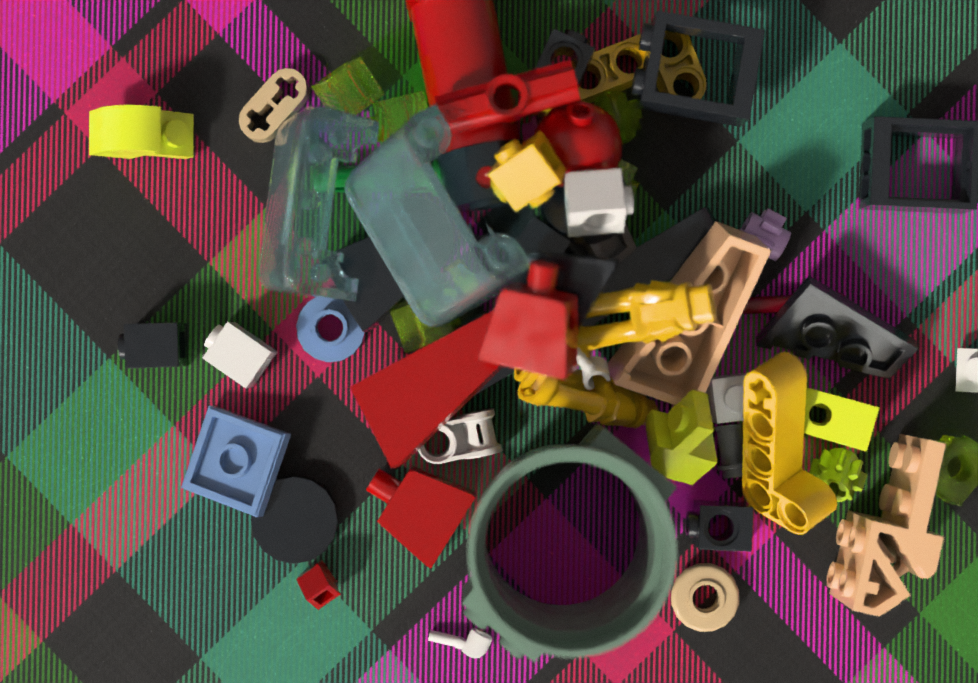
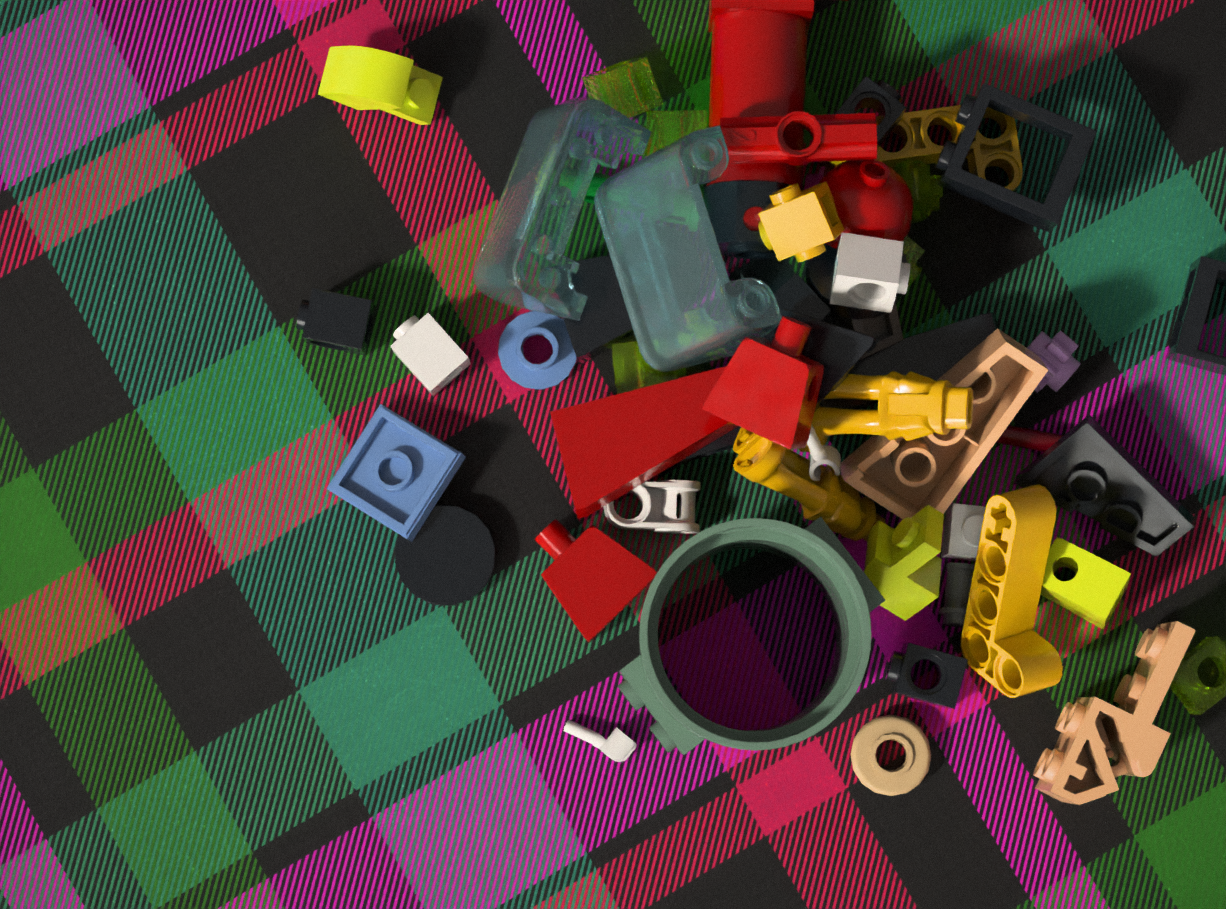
camera: 10 degrees right, 5 degrees down
(266, 97) = (527, 79): tan beam -> none
(318, 585) = (455, 635): red piece -> none
(841, 471) = (1076, 646): lime gear -> none

